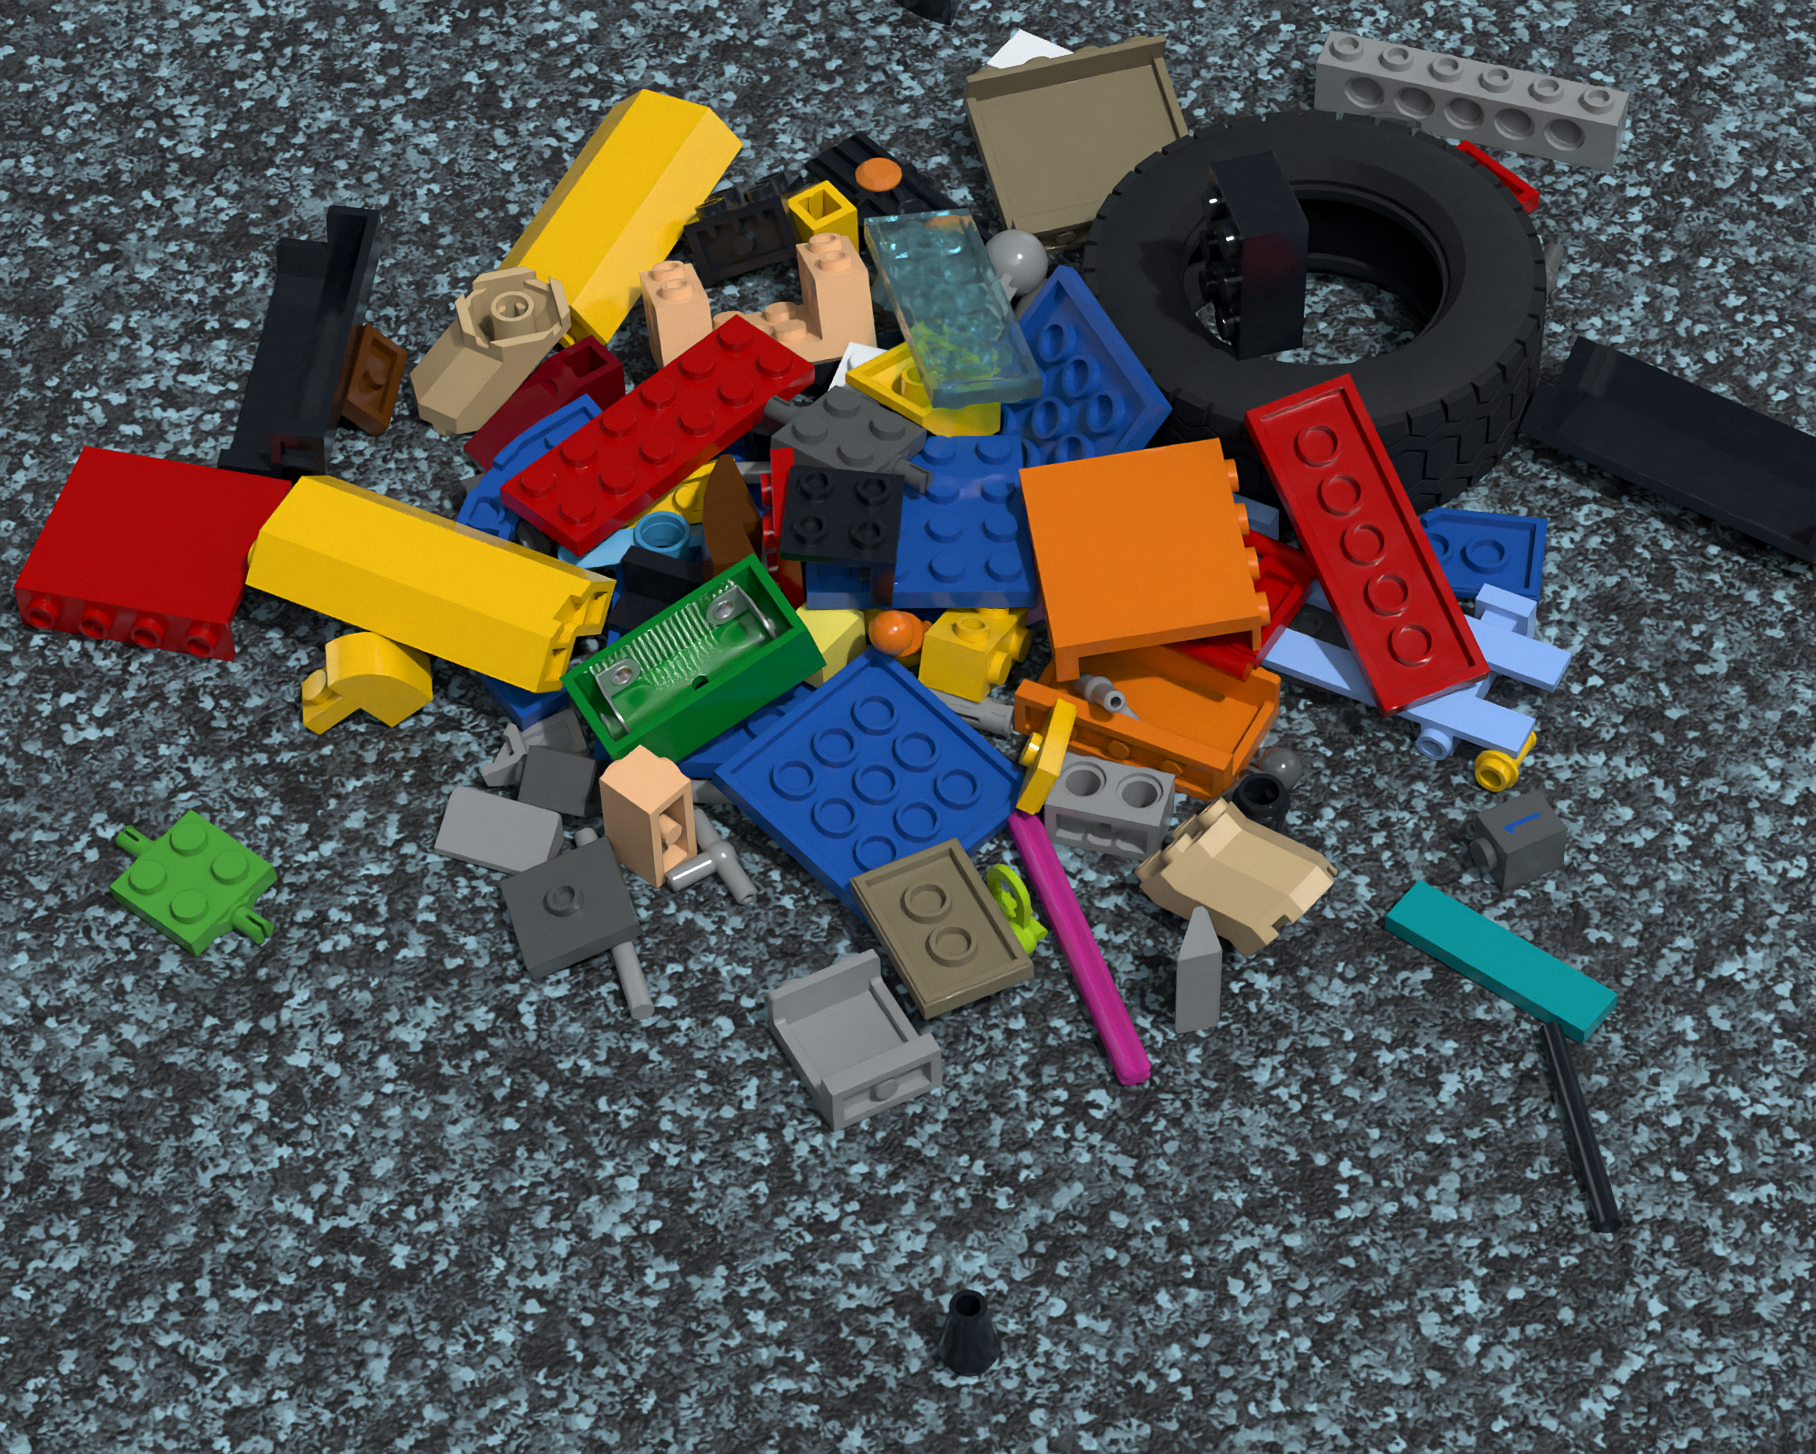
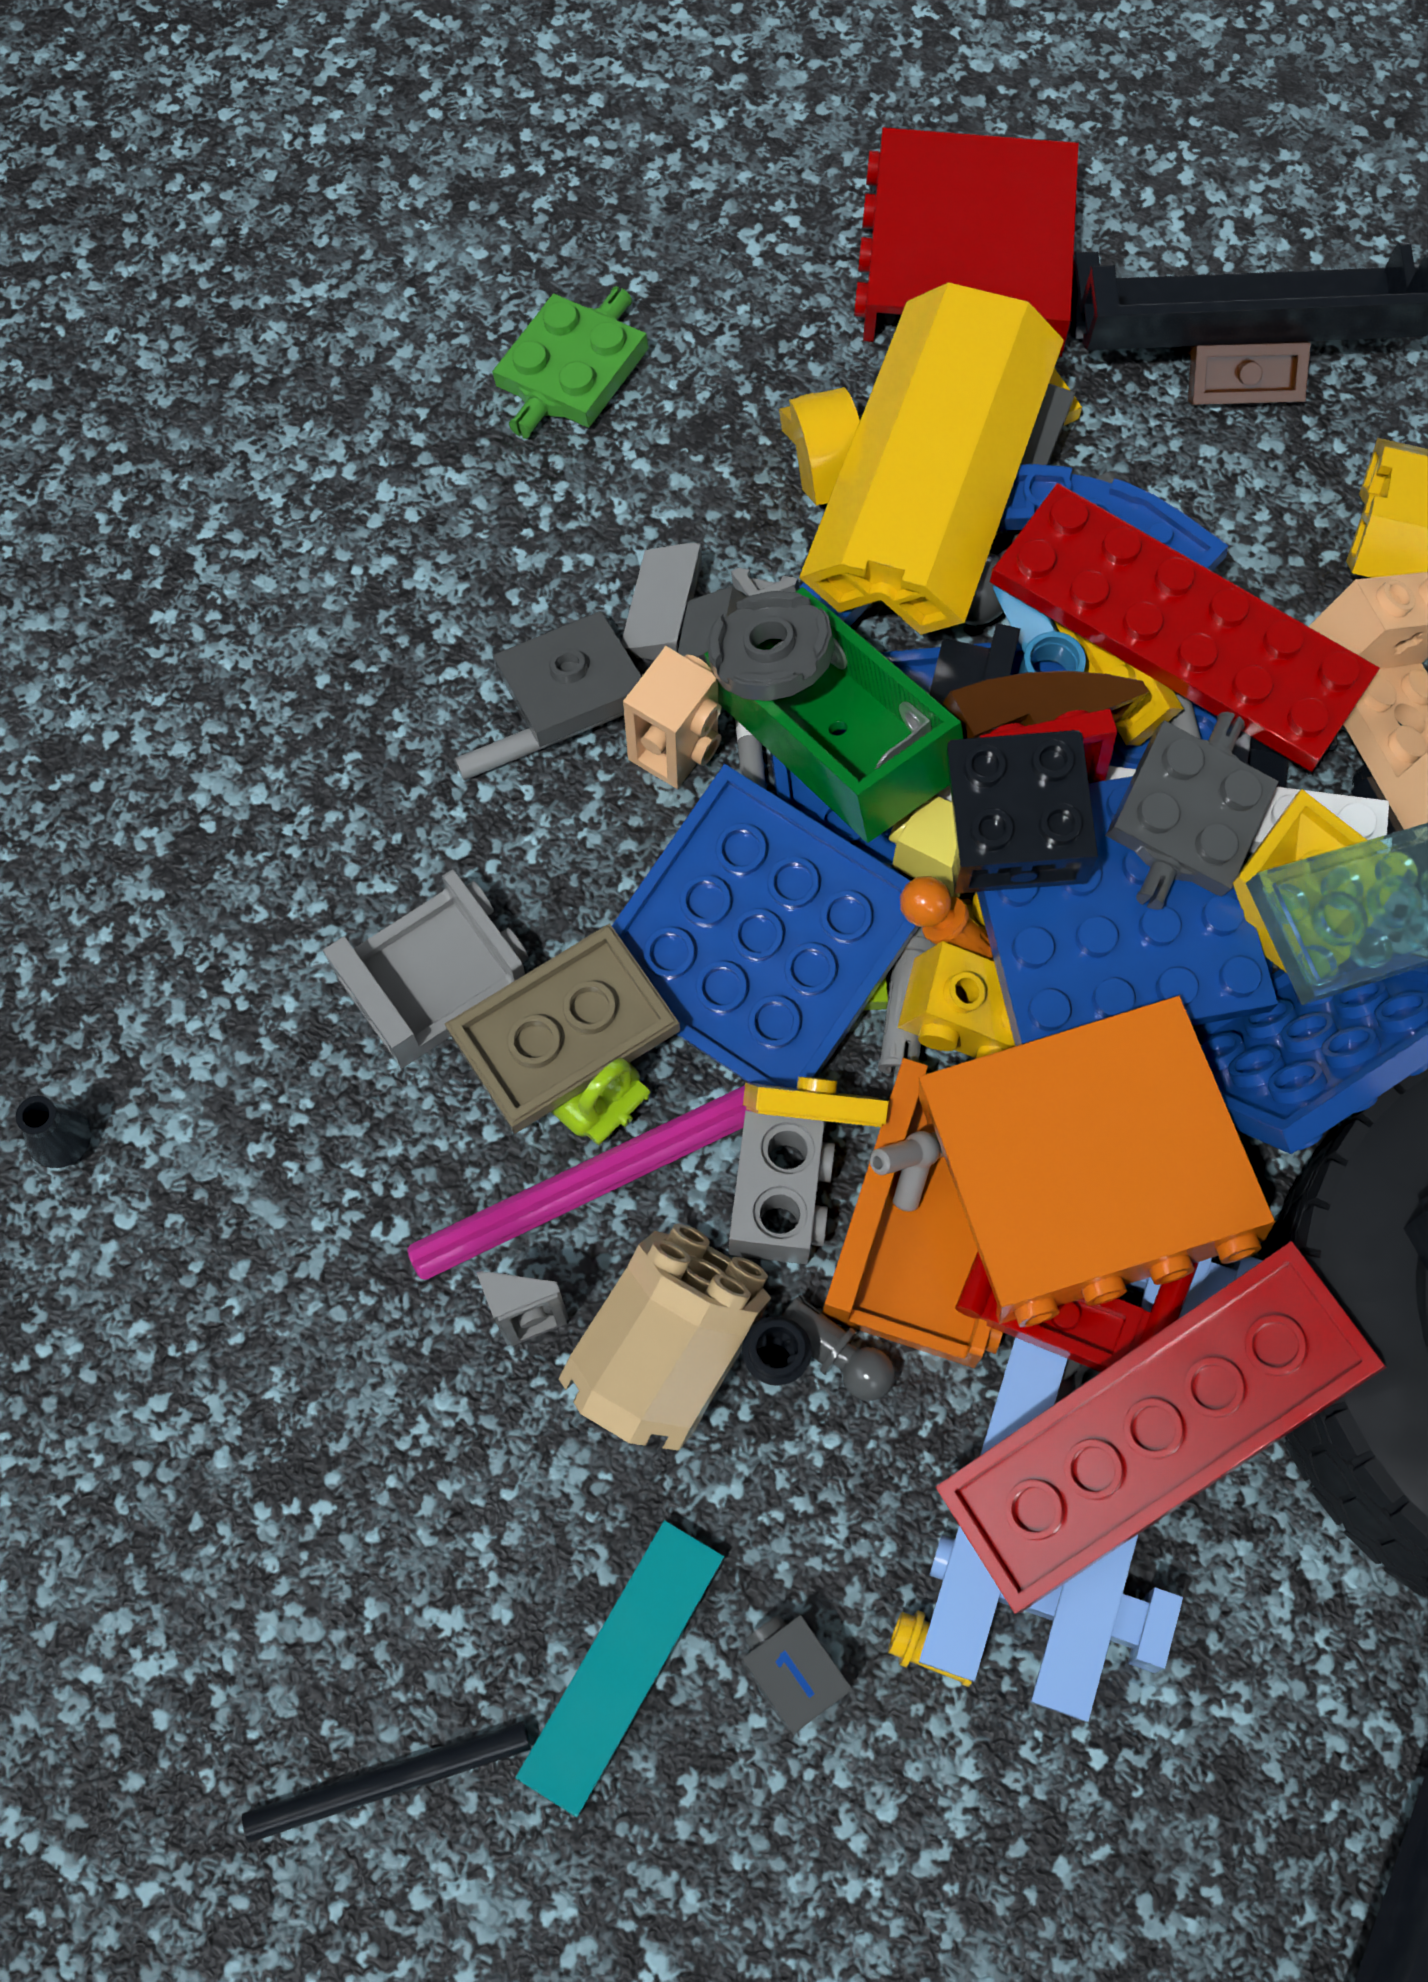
camera: 80 degrees right, 20 degrees up
(489, 348) = (1295, 456): tan brick -> none
(556, 383) = (1268, 544): dark red slope -> none
(639, 718) = (776, 671): none -> dark grey tile
(716, 857) = (661, 804): light grey piece -> none
(1487, 550) = (1266, 1584): blue tile -> none

